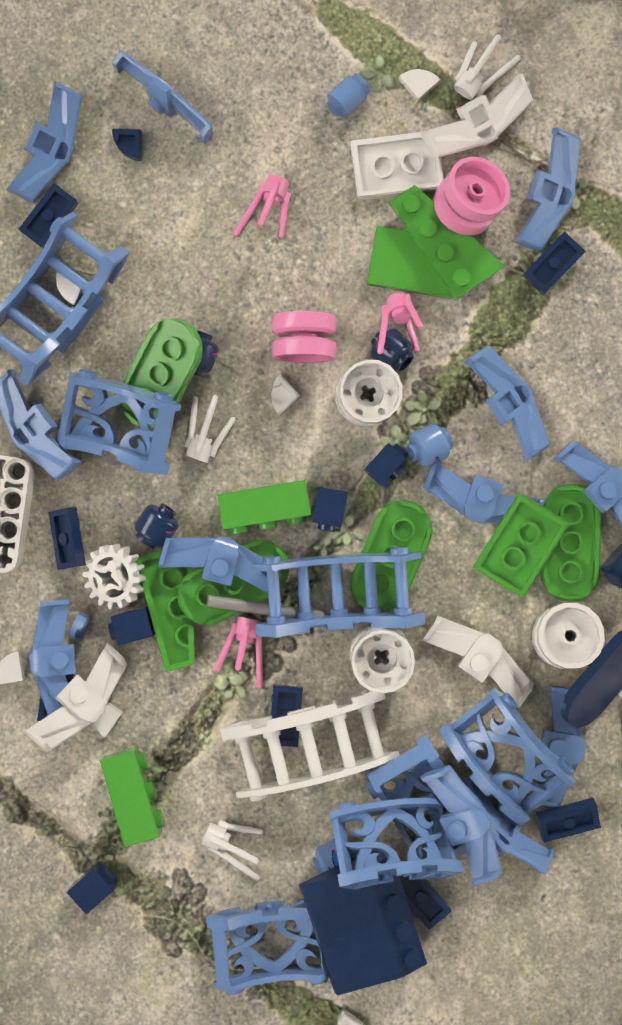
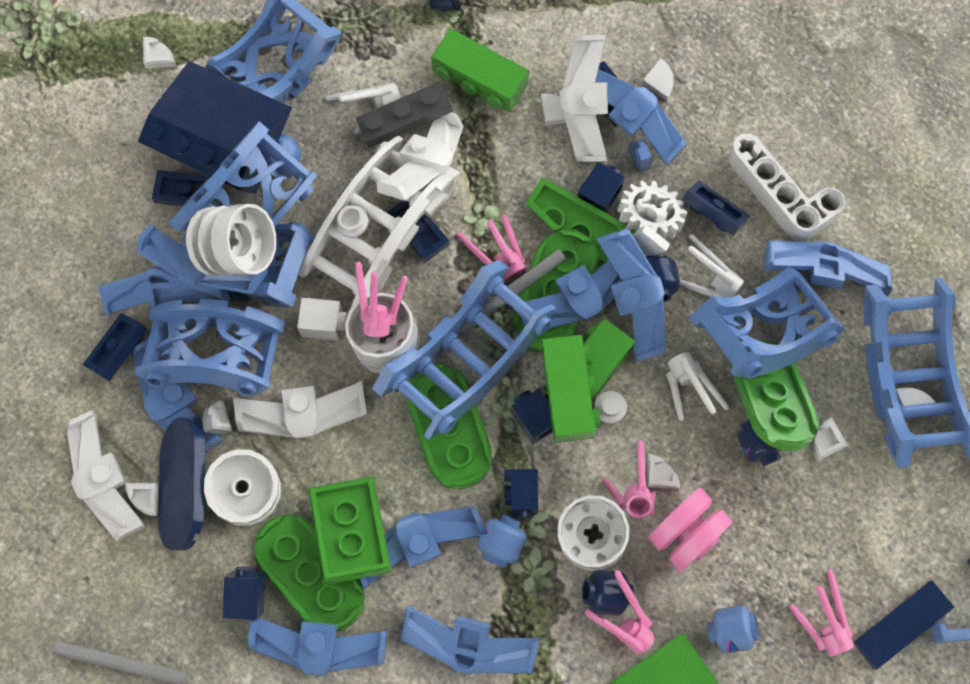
camera: 140 degrees right, 15 degrees down
(113, 480) = (726, 281): none -> white plant
(142, 554) = (650, 241): none -> white tile
(150, 314) = (828, 440): none -> white tile
(183, 525) = (637, 293): none -> medium blue plate
(217, 811) = (404, 114): none -> dark grey plate
(222, 160) = (903, 624): none -> dark blue tile
(235, 761) = (424, 158): none -> white plate
(273, 468) = (611, 407): none -> white plate
(295, 499) = (570, 388): none -> bright green brick
(319, 387) = (637, 498): none -> bright pink plant
(332, 756) = (352, 221): none -> white plate
(334, 254) = (733, 629): none -> medium blue head
(380, 669) = (376, 316): none -> bright pink plant
(411, 709) = (321, 319): none -> white brick
(437, 812) = (231, 240): none -> white wheel
(542, 704) = (216, 419): none -> white tile

